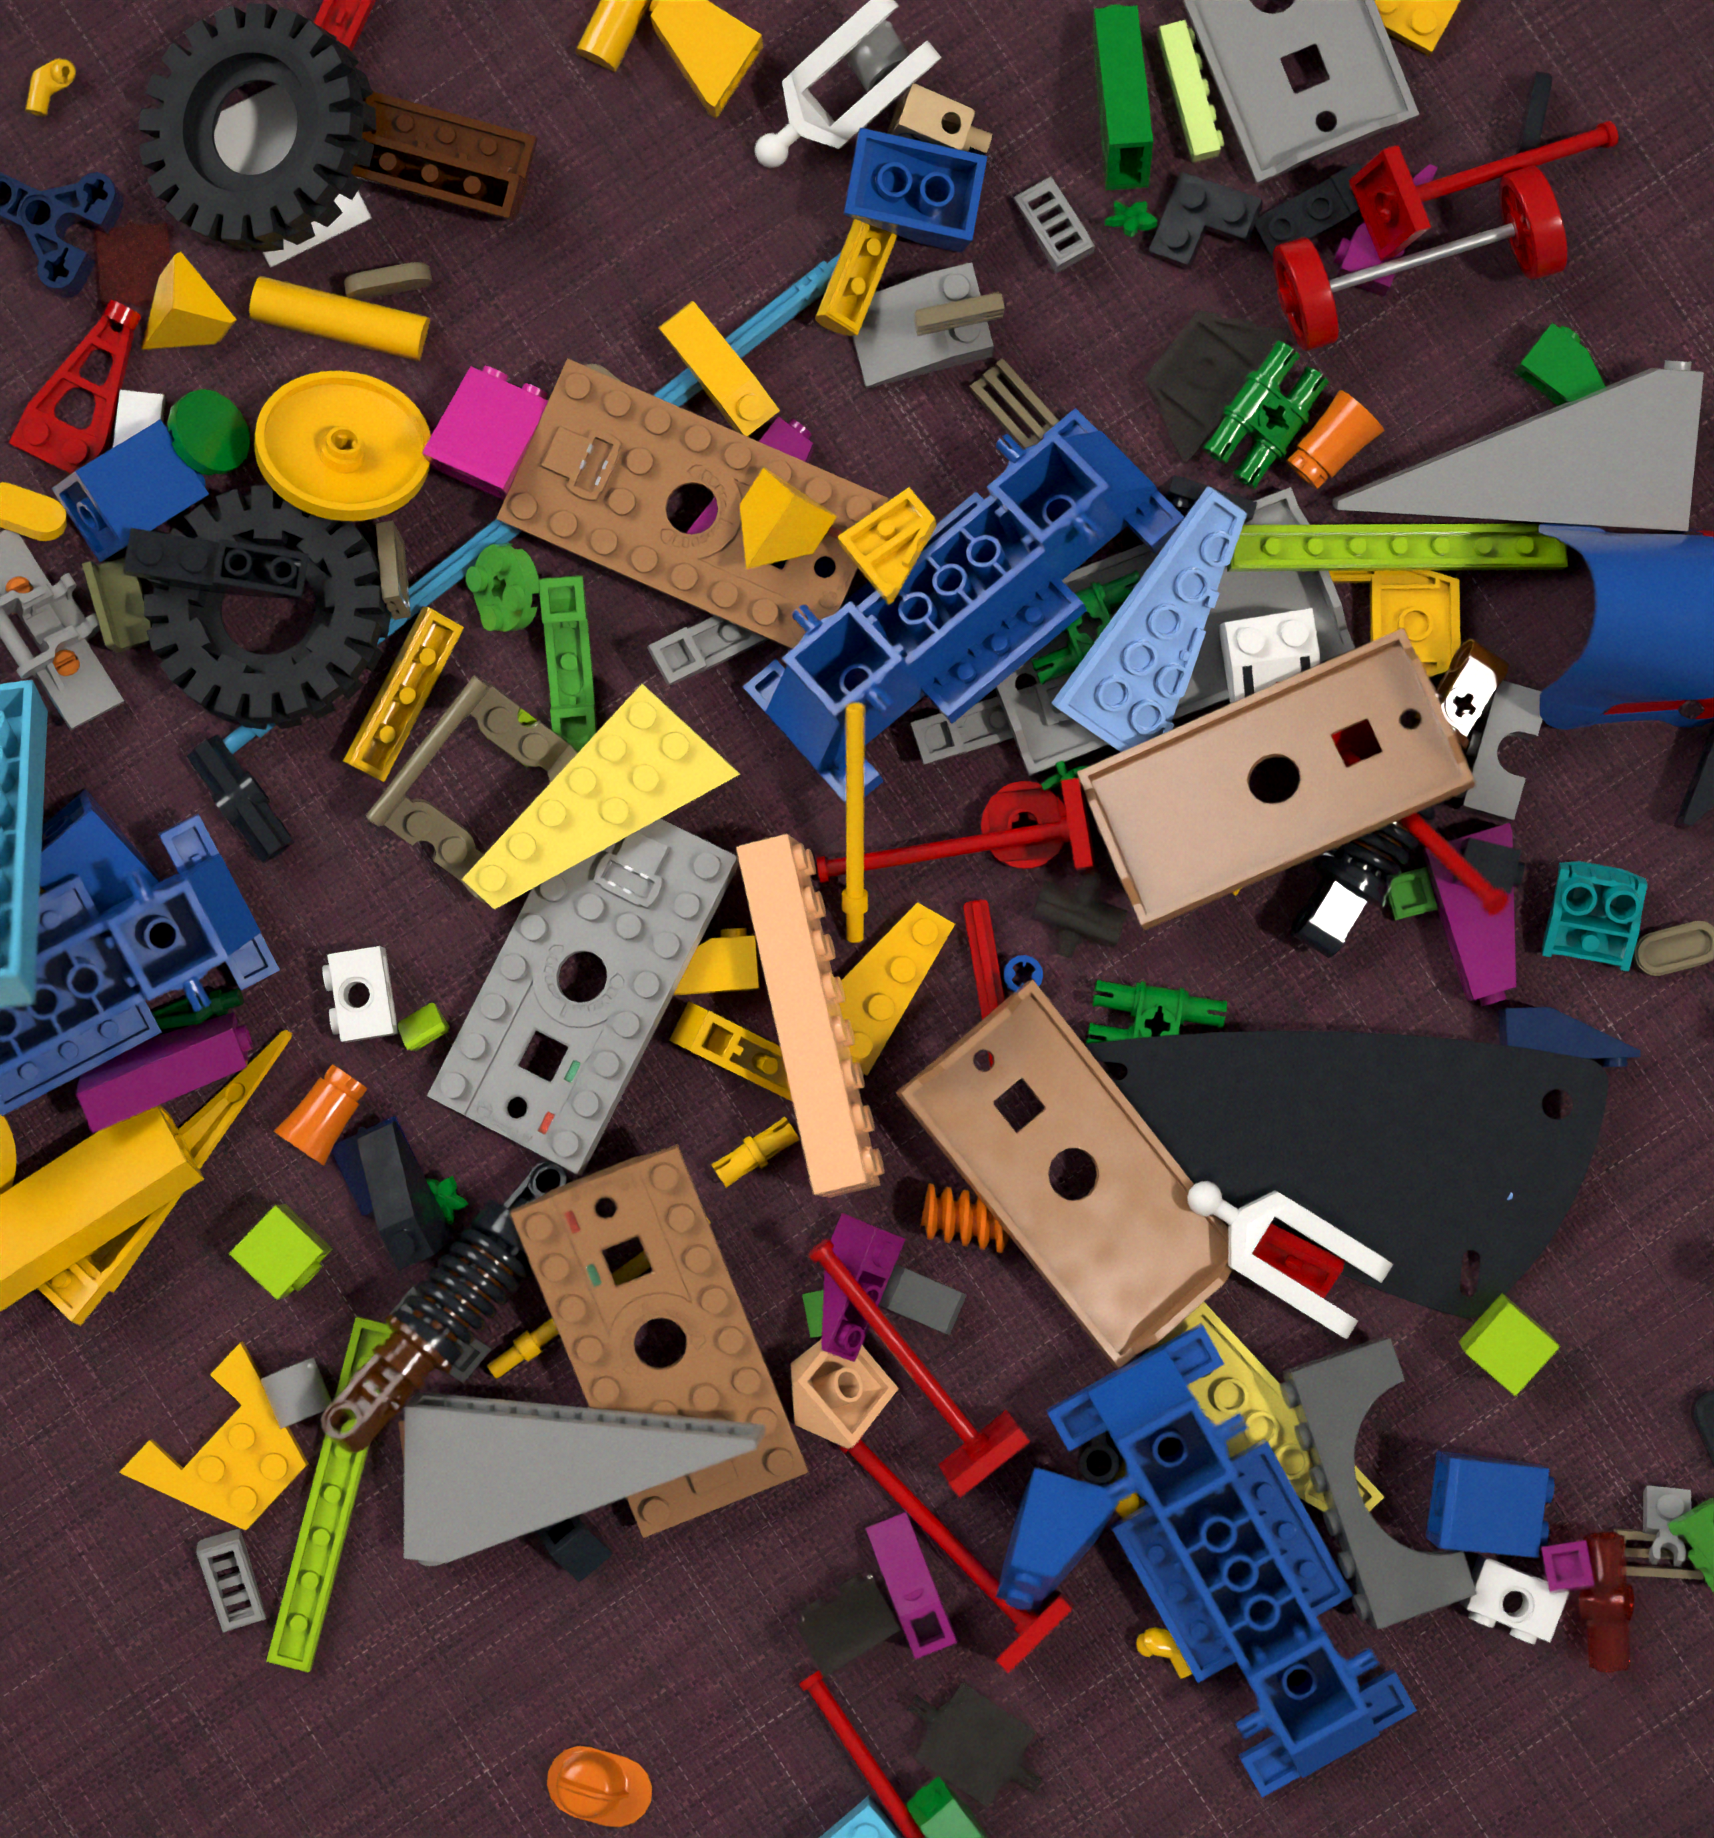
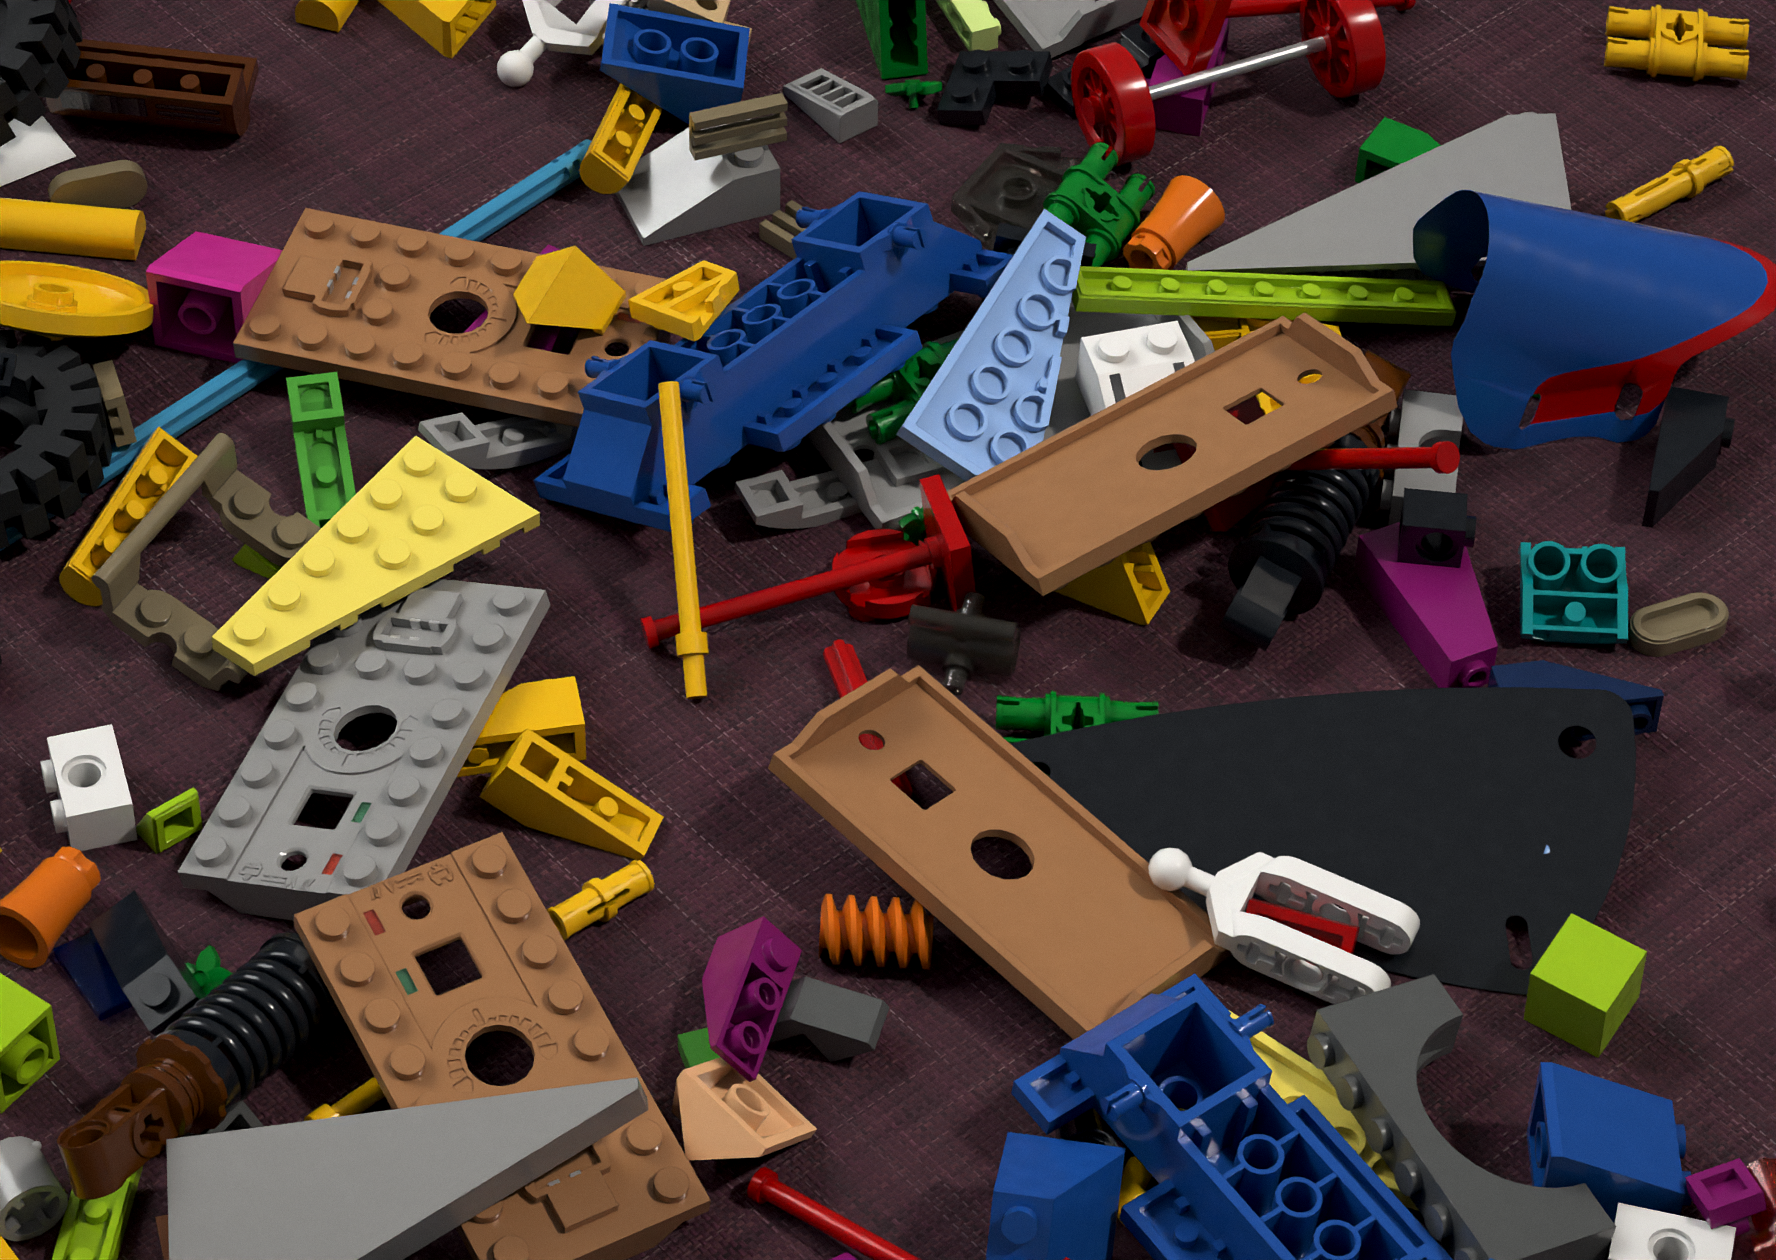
camera: 10 degrees left, 40 degrees down
(498, 605) = (245, 383): bright green plate -> none
(719, 370) = (475, 208): yellow slope -> none
(809, 1016) = (656, 734): light nougat piece -> none
(888, 978) = (729, 745): yellow wing -> none
(981, 1450) = (932, 1150): red tile -> none
(1411, 894) = (1353, 603): bright green tile -> none

